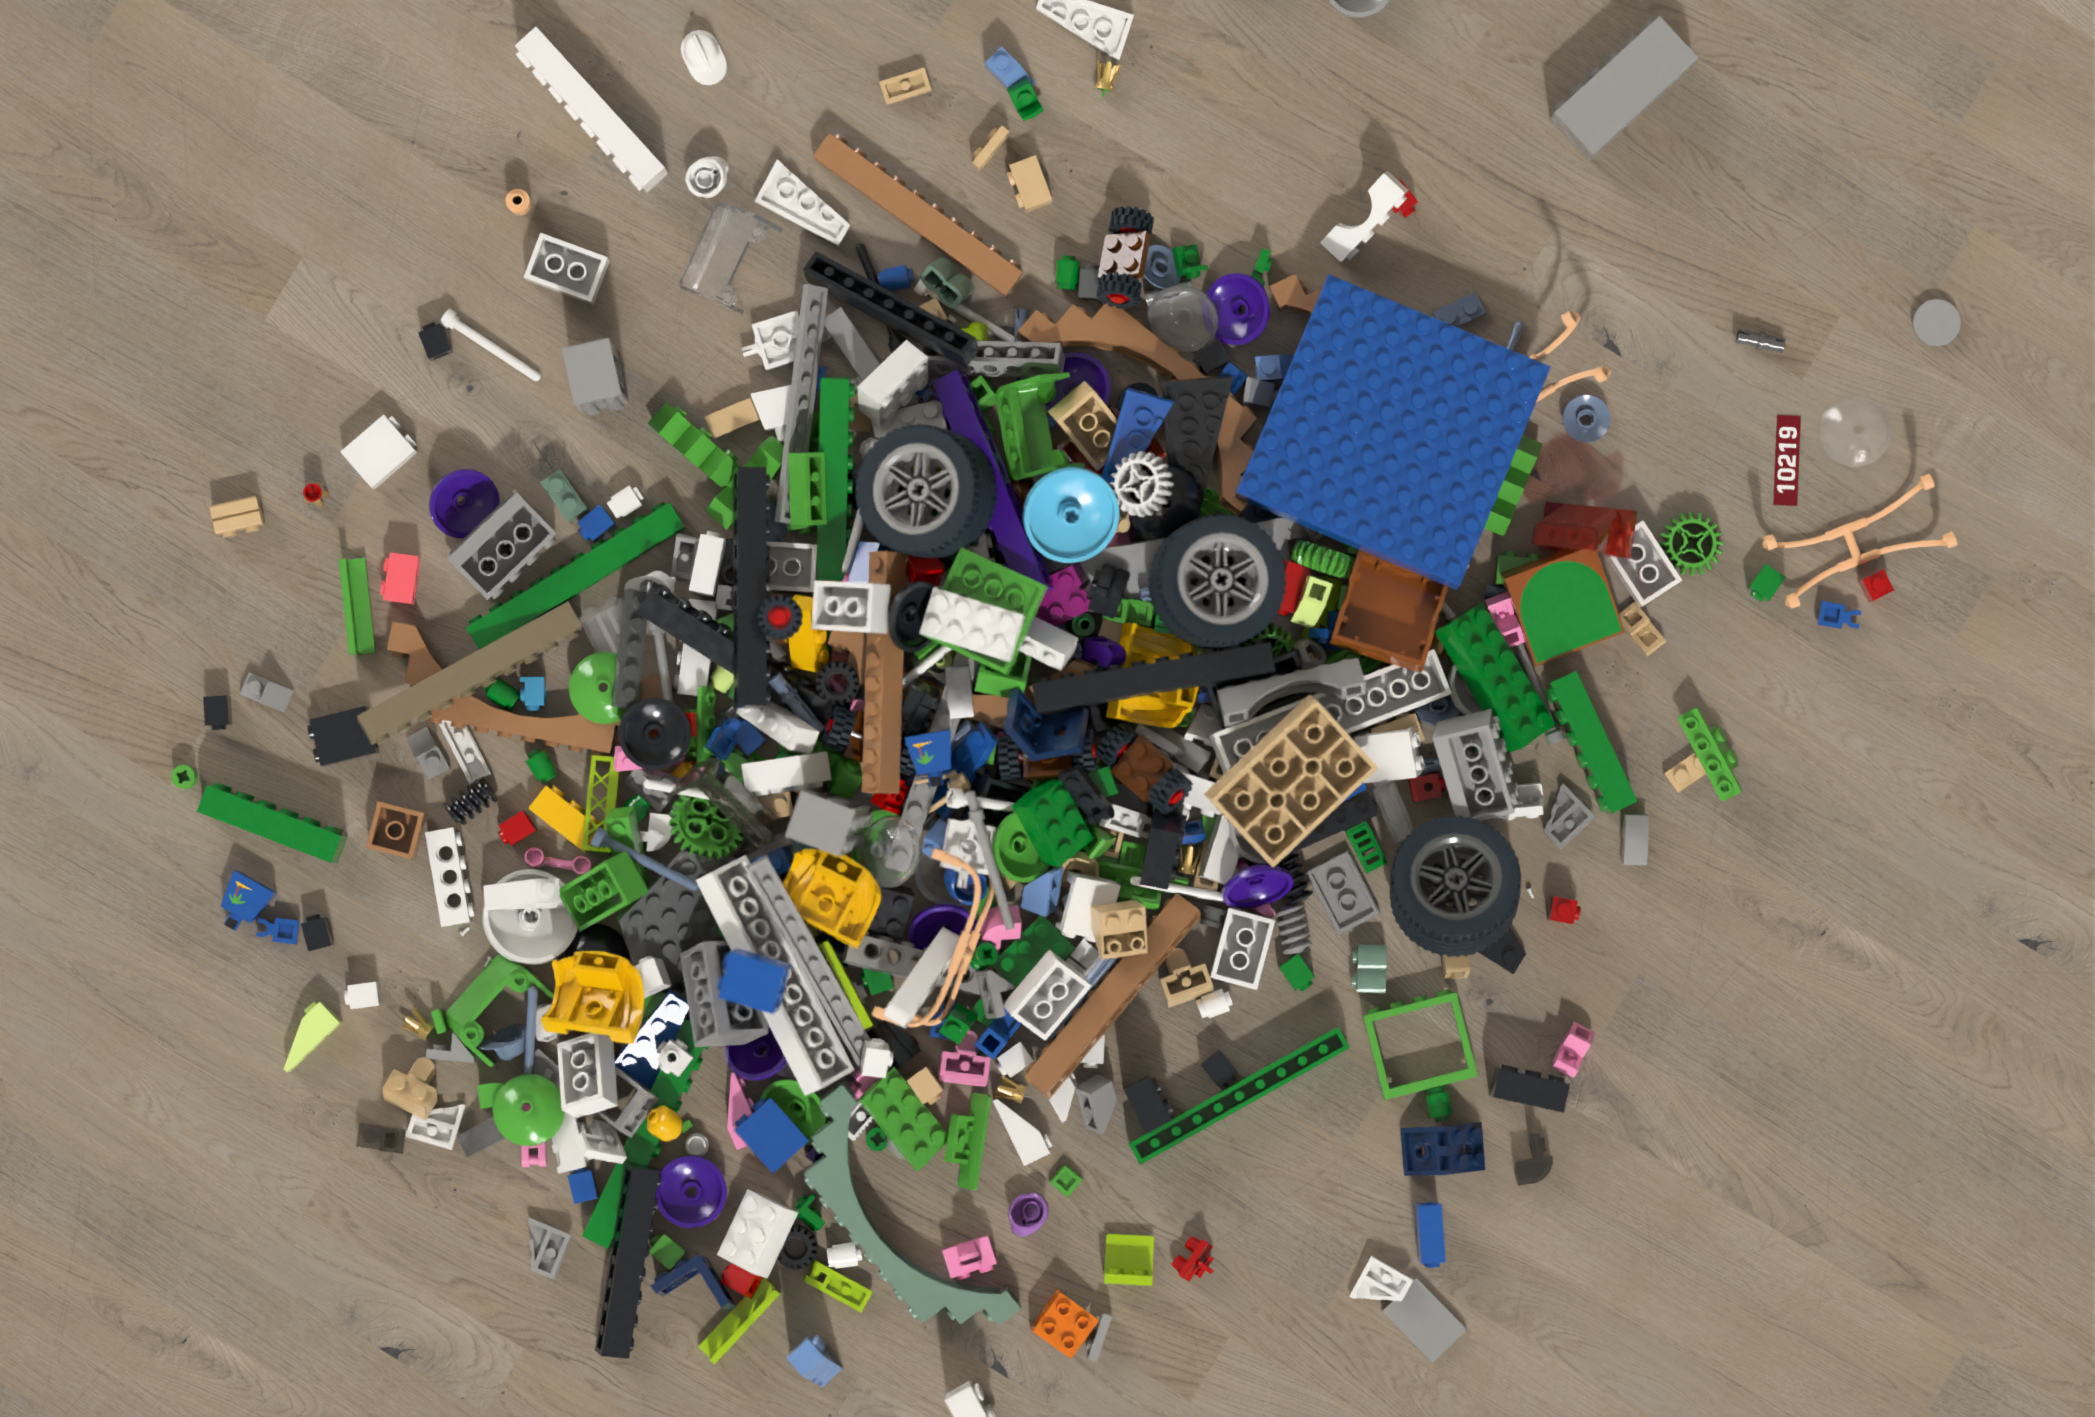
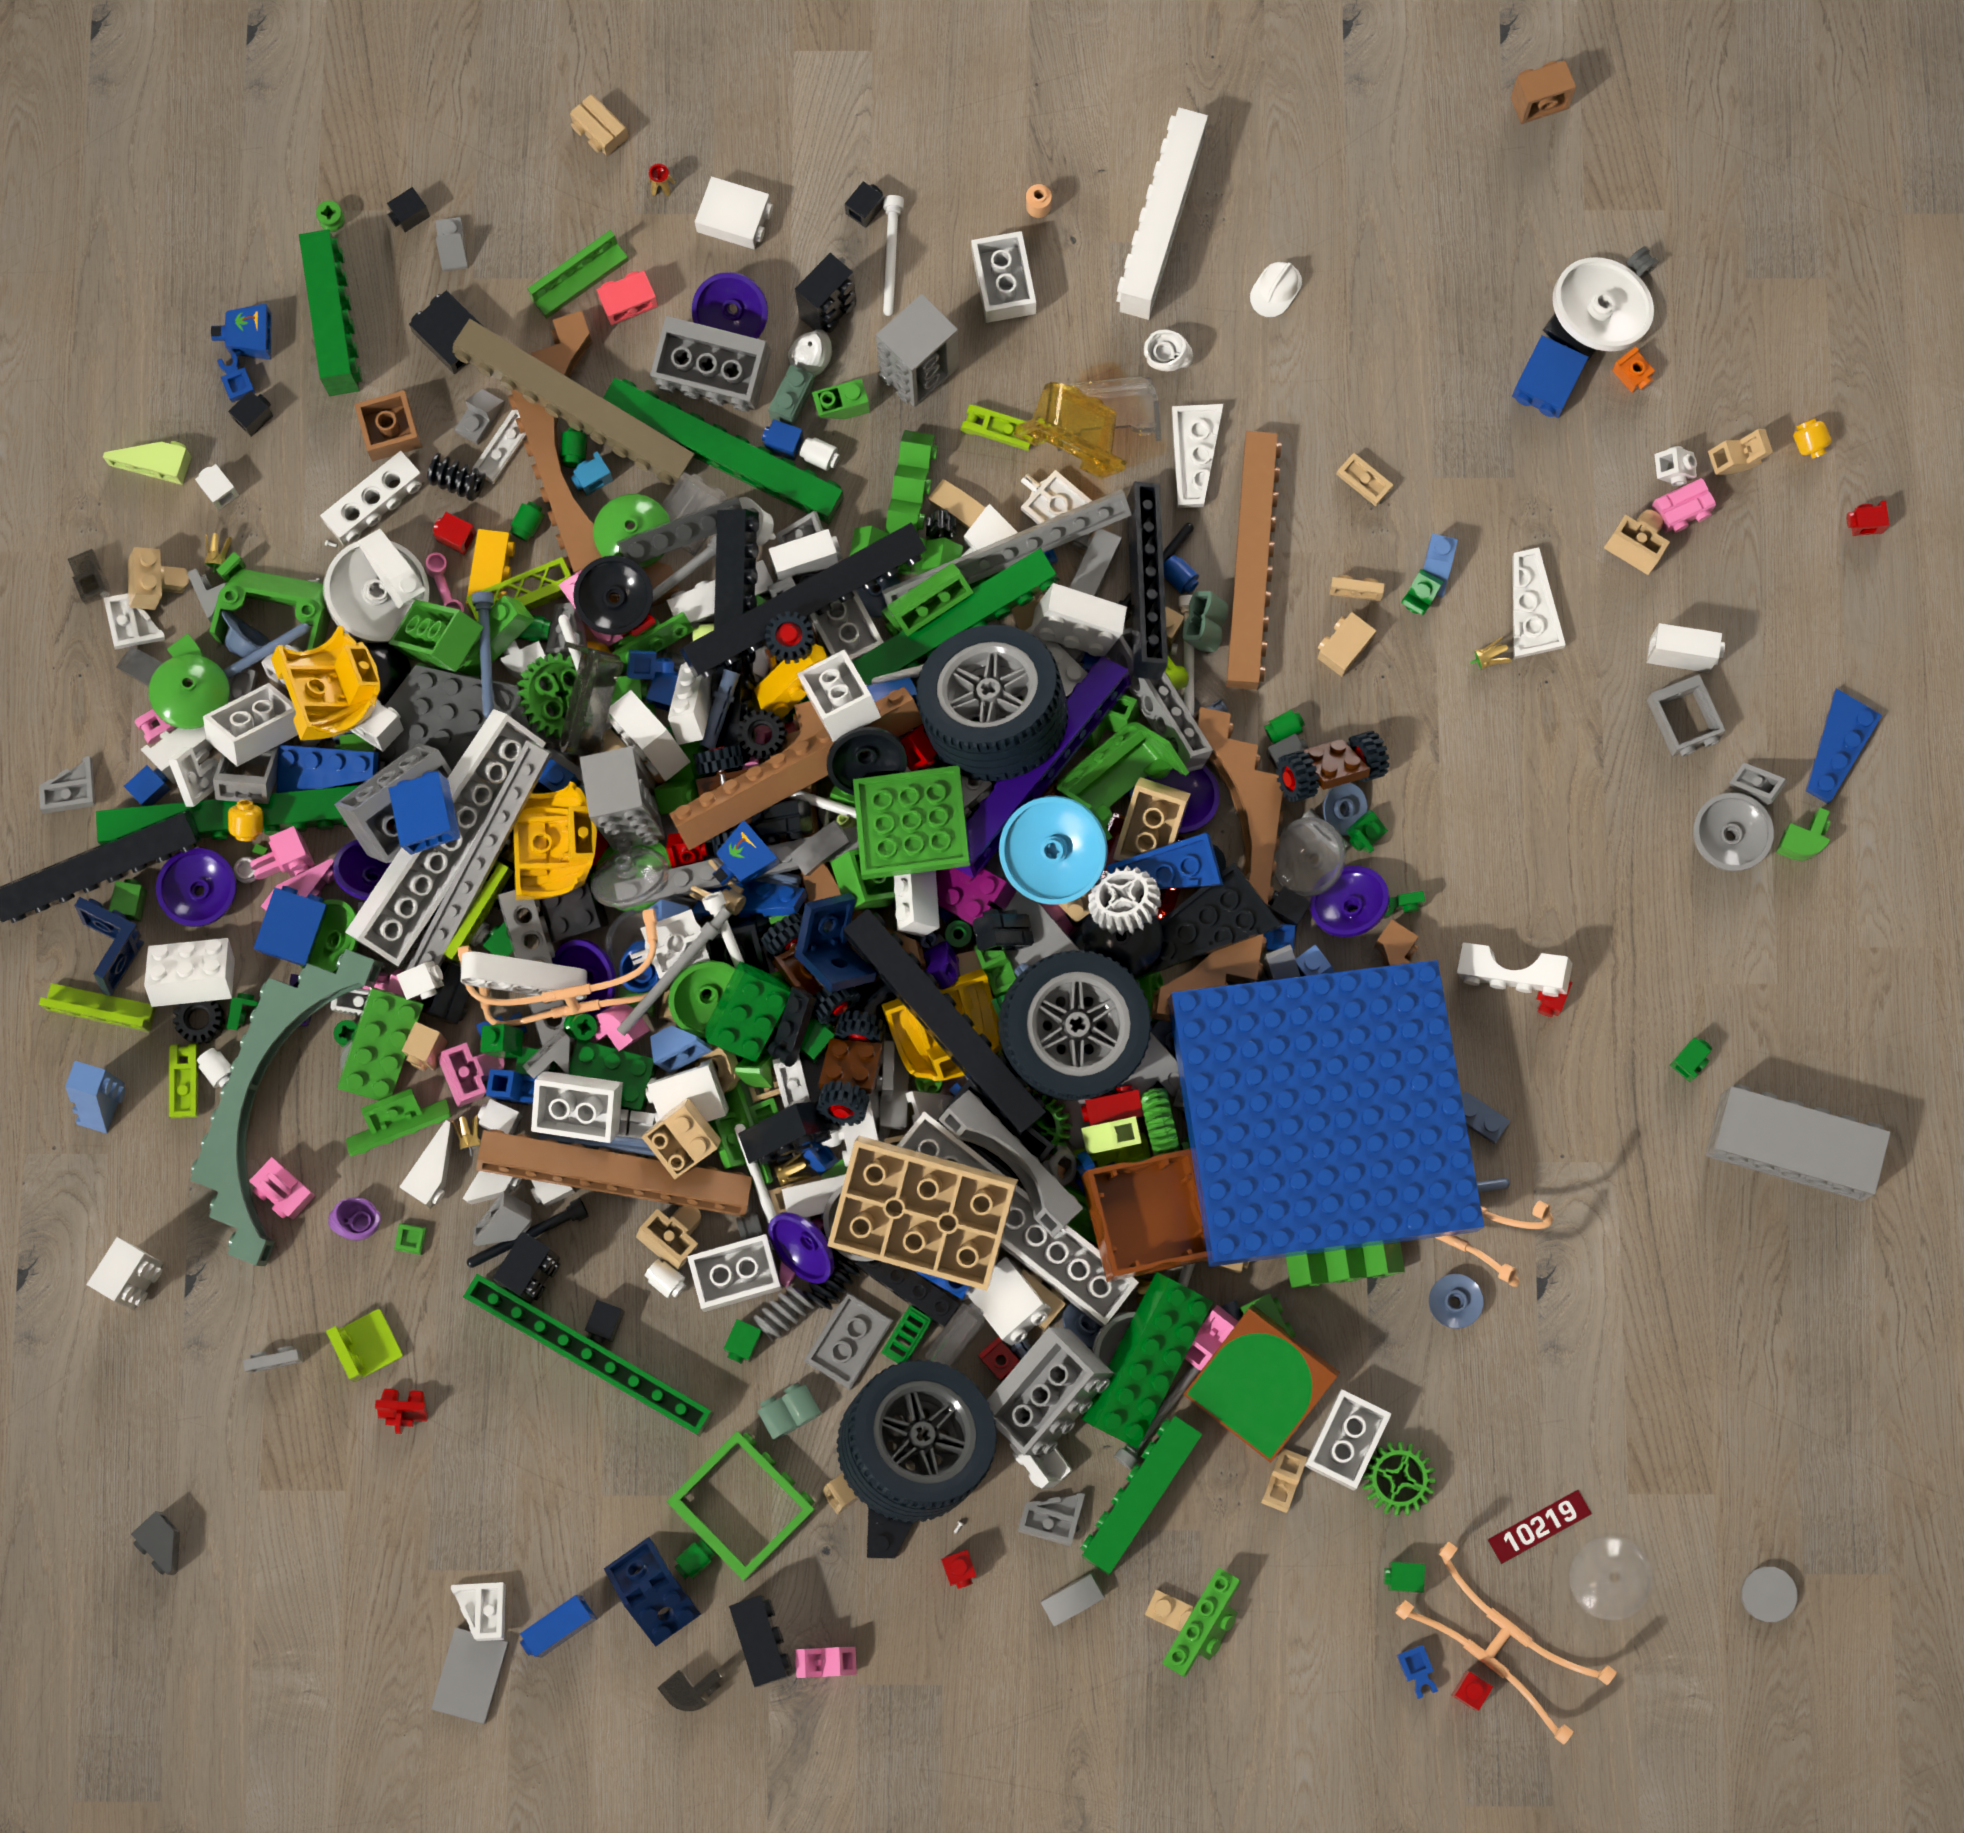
camera: 60 degrees right, 10 degrees down
(501, 420) = (826, 294): none -> black brick
(536, 459) = (811, 352): none -> white hair
(592, 459) = (842, 400): none -> bright green slope
(683, 1056) = (315, 792): white brick -> none
(688, 347) = (995, 426): none -> lime plate
(710, 1104) = (287, 855): none -> bright pink brick
(731, 289) = (1077, 426): none -> clear yellow windscreen
(740, 1280) = (133, 985): red brick -> none
(744, 442) = (941, 525): none -> black gear
(972, 624) = (890, 817): white plate -> none
(1064, 1324) = (264, 1318): orange bracket -> none
(1120, 1043) = (574, 1211): none -> black piece
(1511, 124) = (1692, 1058): none -> green brick
(1586, 528) = (1349, 1359): clear red windscreen -> none
(1760, 340) = (1639, 1427): dark grey pin -> none

